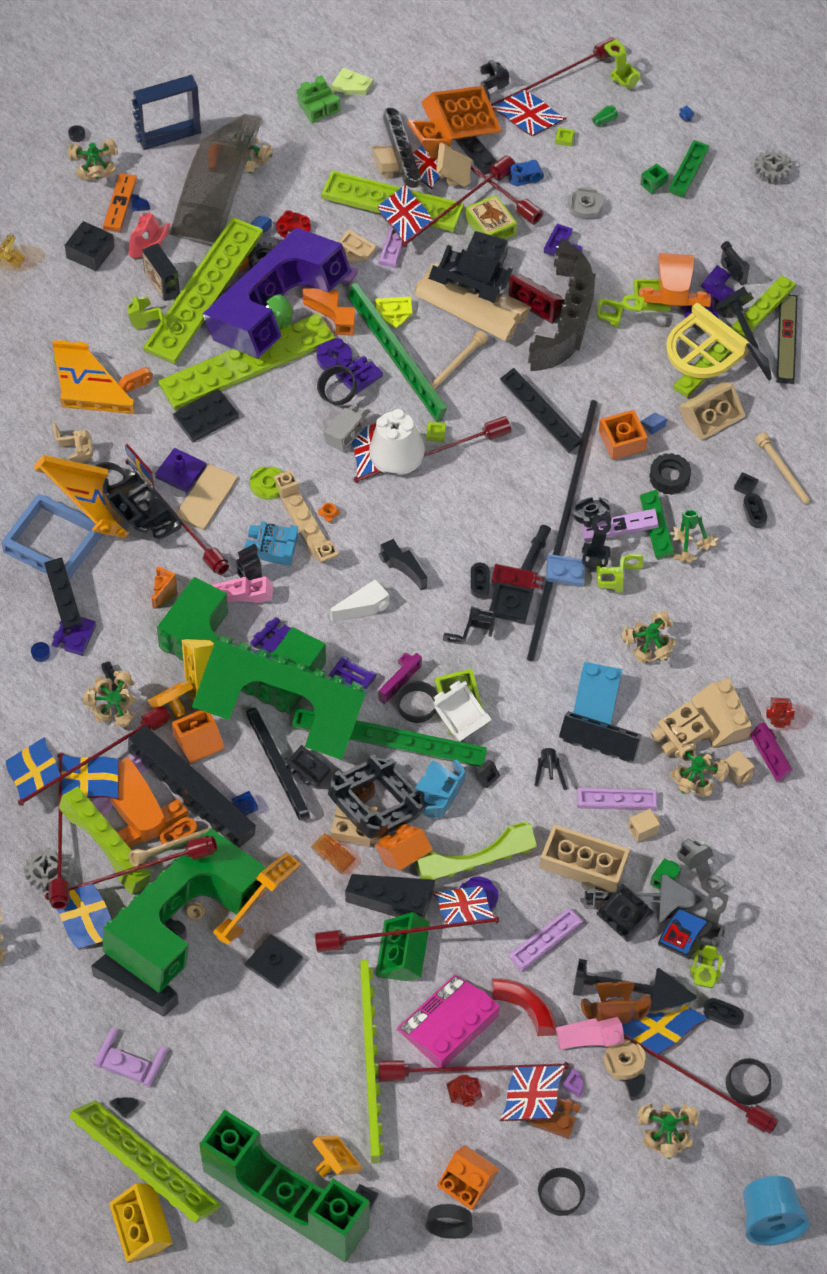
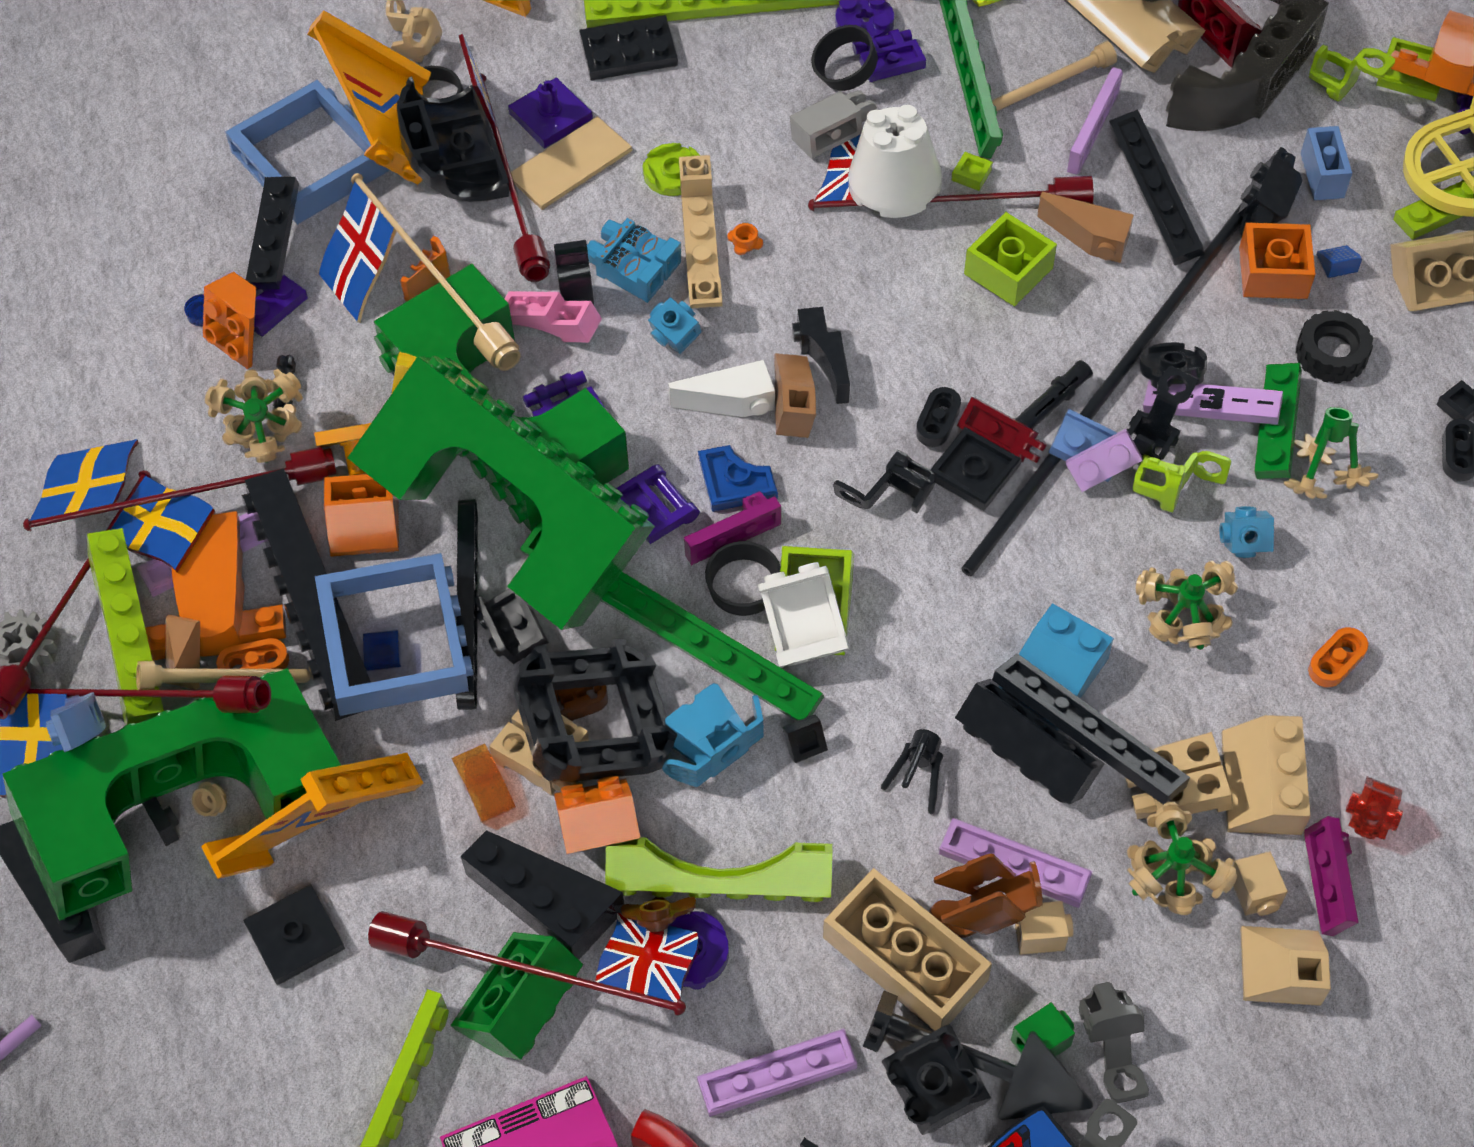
camera: 25 degrees right, 0 degrees up
(68, 651) = (230, 317): none -> orange slope
(117, 891) = (75, 722): none -> medium blue slope
(120, 589) = (360, 252): none -> flag
(141, 836) = (182, 646): none -> medium nougat slope
(246, 832) = (400, 689): none -> medium blue window
(319, 580) = (674, 325): none -> dark azure brick
(385, 651) = (732, 479): none -> blue tile
(401, 593) = (794, 395): none -> medium nougat slope
(455, 884) = (658, 912): none -> reddish brown plate
(481, 478) = (1010, 259): none -> lime brick
(492, 380) = (1095, 121): none -> lavender tile
(518, 446) = (1091, 227): none -> medium nougat slope
(578, 576) = (1104, 460): none -> lavender plate
(604, 395) = (1271, 190): none -> black hinge
(611, 827) = (987, 907): none -> dark orange piece
(627, 368) = (1326, 163): none -> medium blue brick
(629, 719) = (1091, 729): none -> black plate
(665, 590) = (1247, 531): none -> dark azure brick
(732, 642) = (1336, 659): none -> orange plate
(765, 802) = (1284, 966): none -> tan slope

